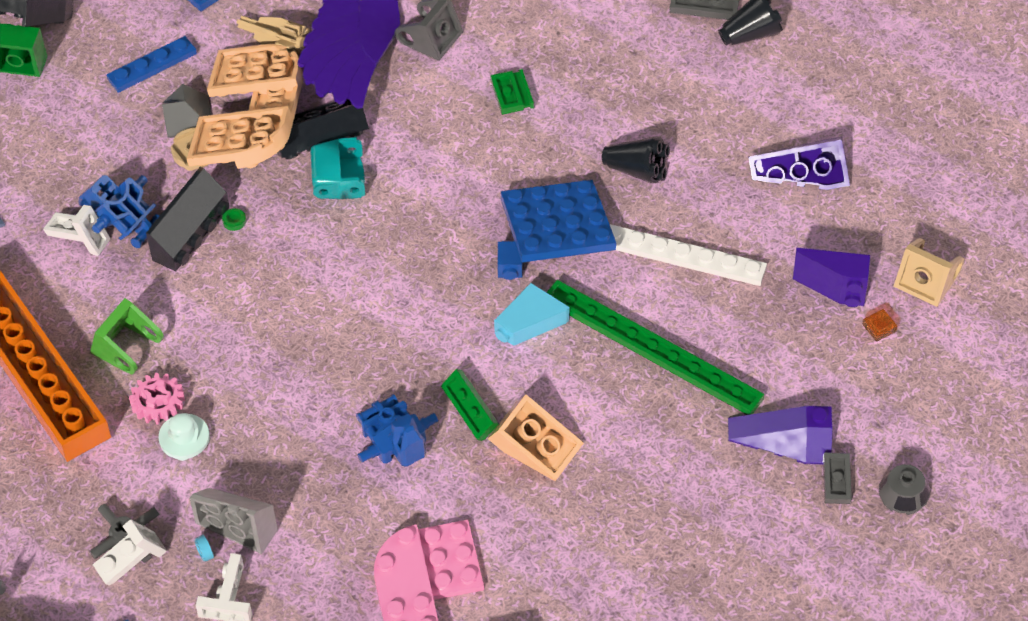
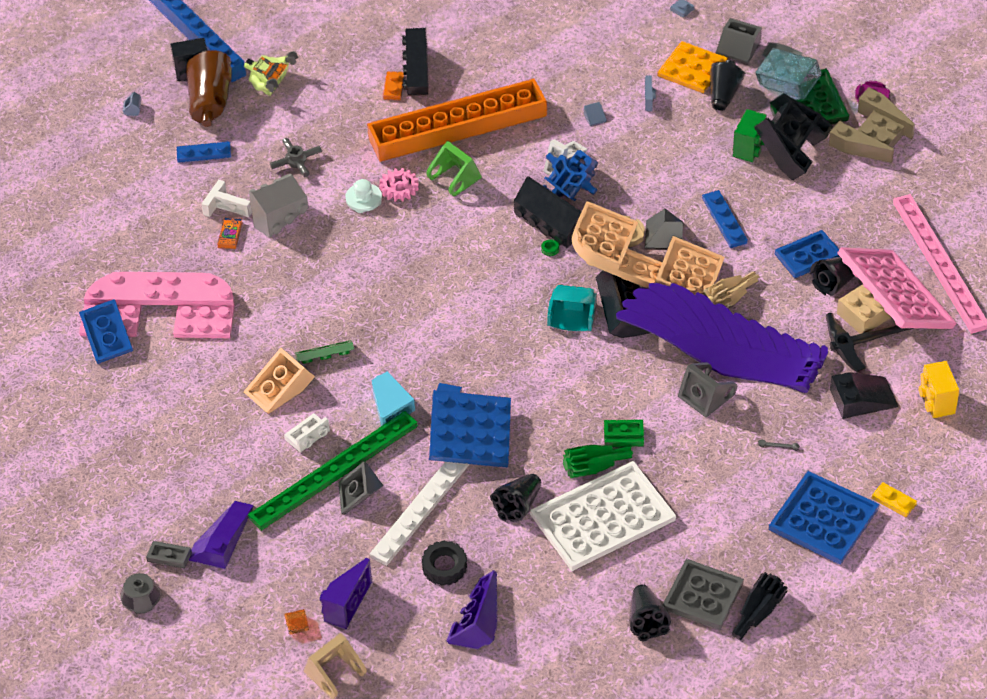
camera: 105 degrees right, 5 degrees down
(128, 552) = (278, 157): white bracket -> none
(281, 577) = (230, 233): none -> tile
(394, 432) = (314, 304): blue piece -> none
(563, 107) = (592, 459): none -> green piece
(606, 385) = (307, 432): none -> white bracket
(633, 87) = (602, 515): none -> white plate
(678, 311) = (357, 487): none -> dark grey slope
(753, 194) = (439, 549): none -> black tyre

